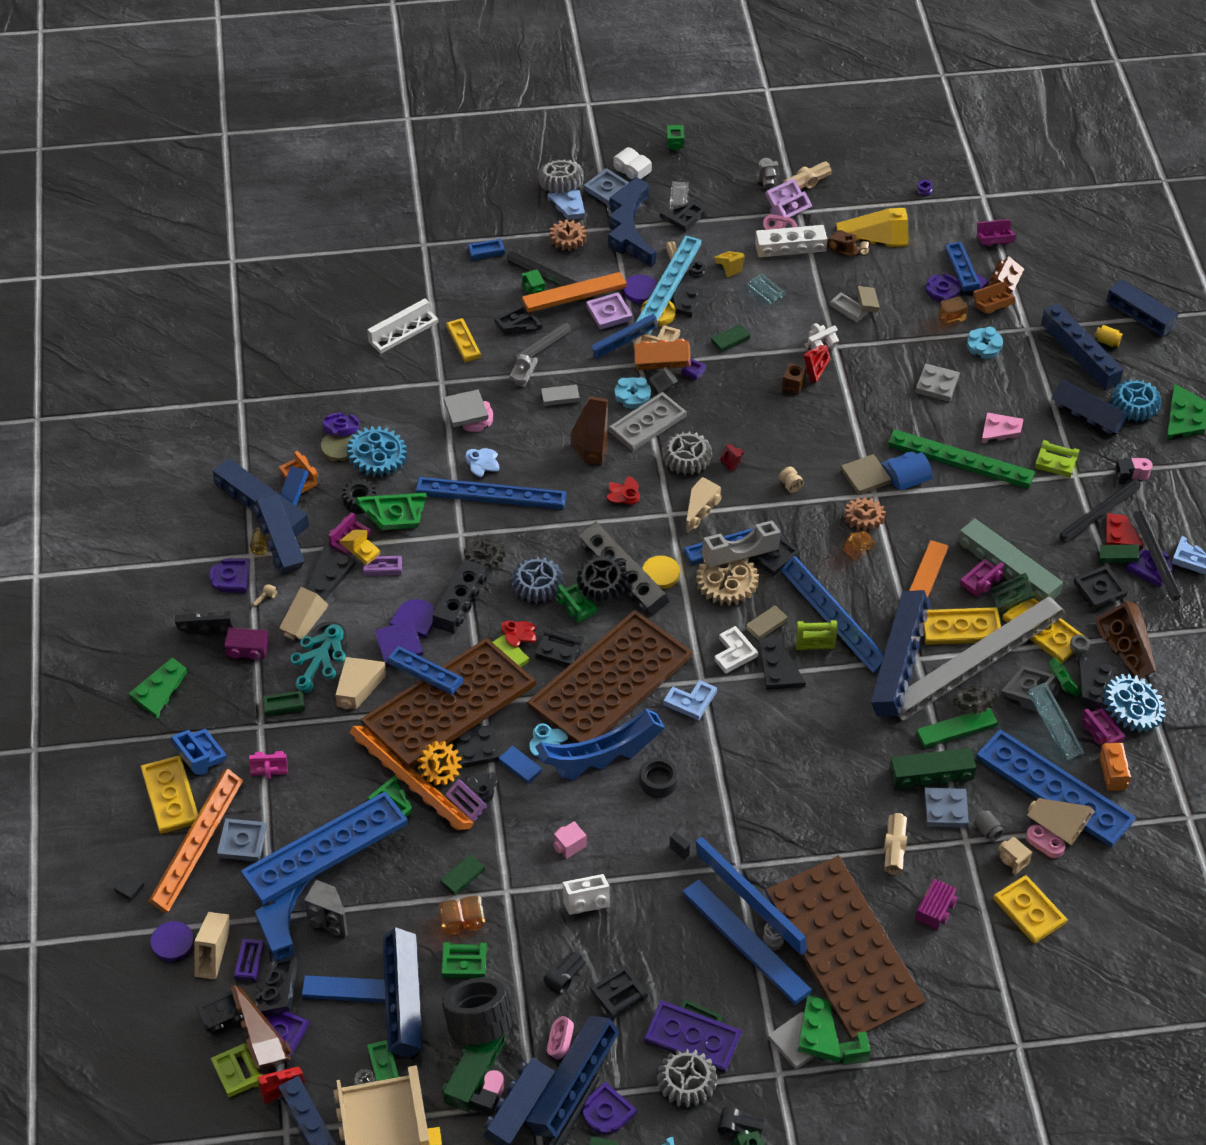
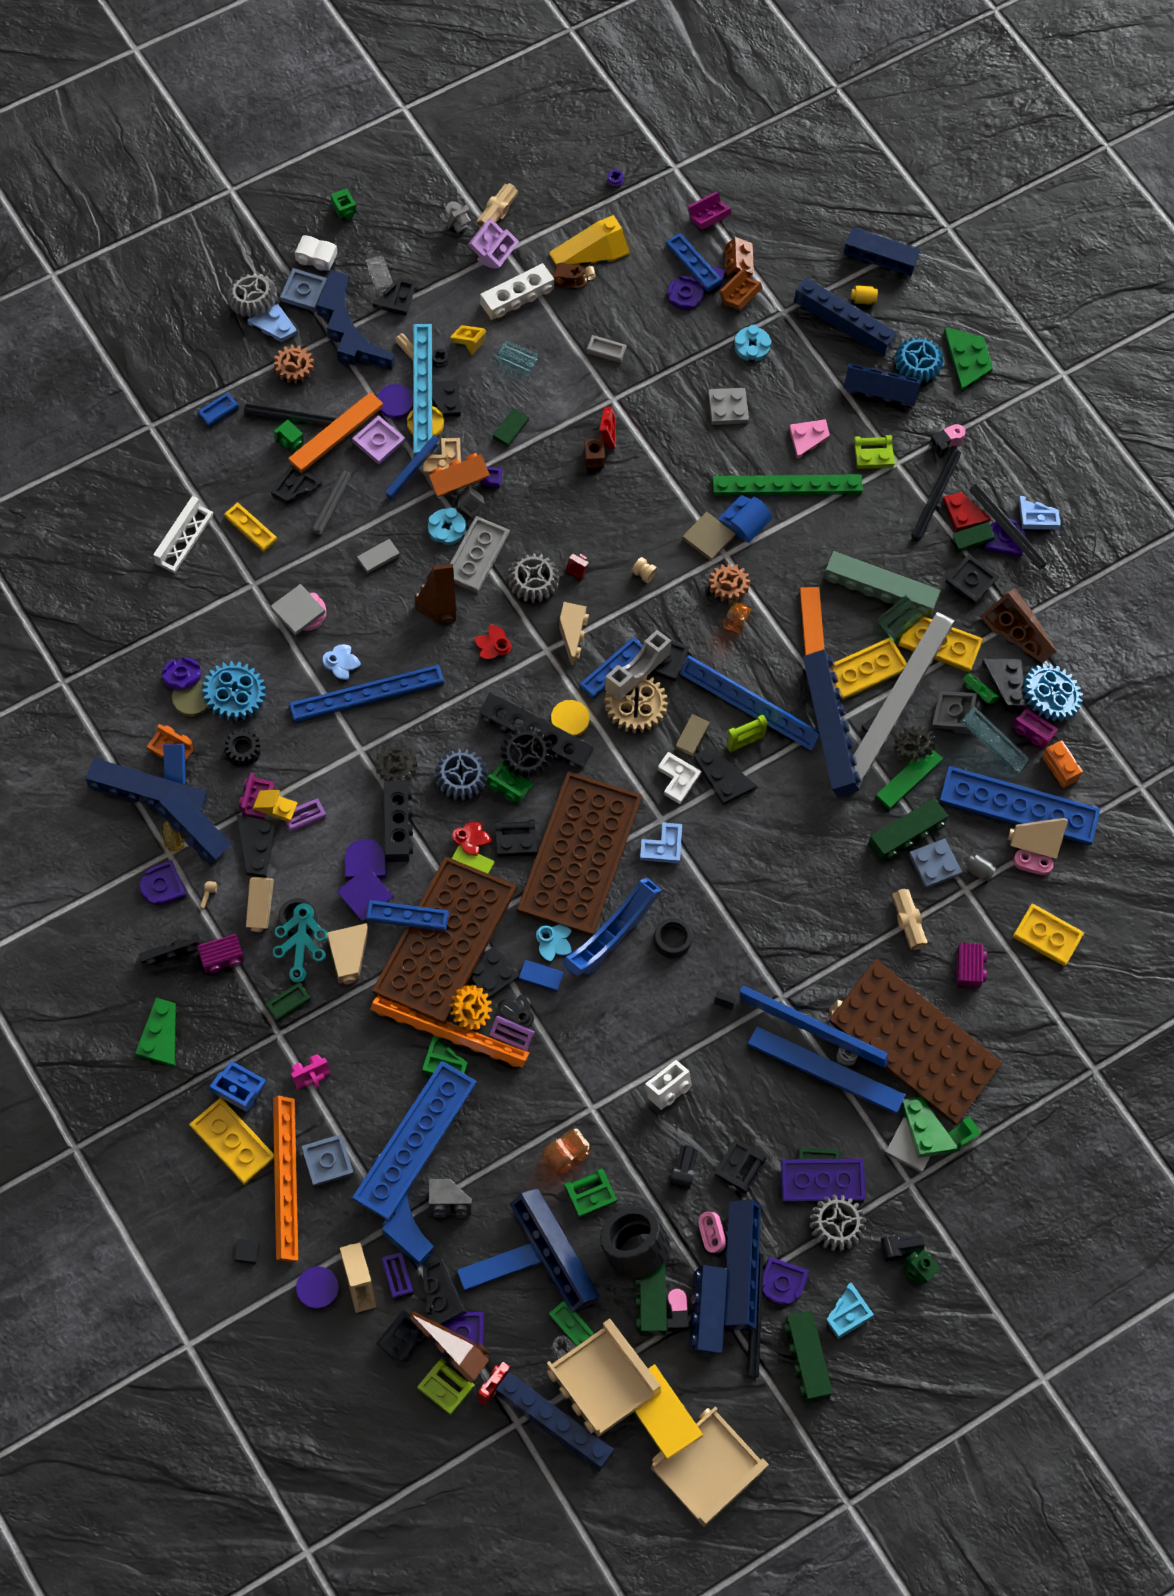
camera: 30 degrees left, 15 degrees up
(393, 510) = (286, 752): green wing -> none
(462, 874) = (545, 1109): dark green tile -> none
(523, 370) = (330, 542): light grey hips -> none
(569, 840) = (624, 1035): bright pink brick -> none
(780, 222) = (496, 275): bright pink plate -> none
(820, 334) = (604, 392): white hips -> none
(867, 299) = (622, 334): dark tan tile -> none
(953, 310) = (708, 318): clear orange brick -> none
(982, 577) = (863, 610): magenta bracket -> none
(1015, 854) = (1014, 887): tan brick -> none
(1079, 644) = (980, 649): dark grey tile -> none

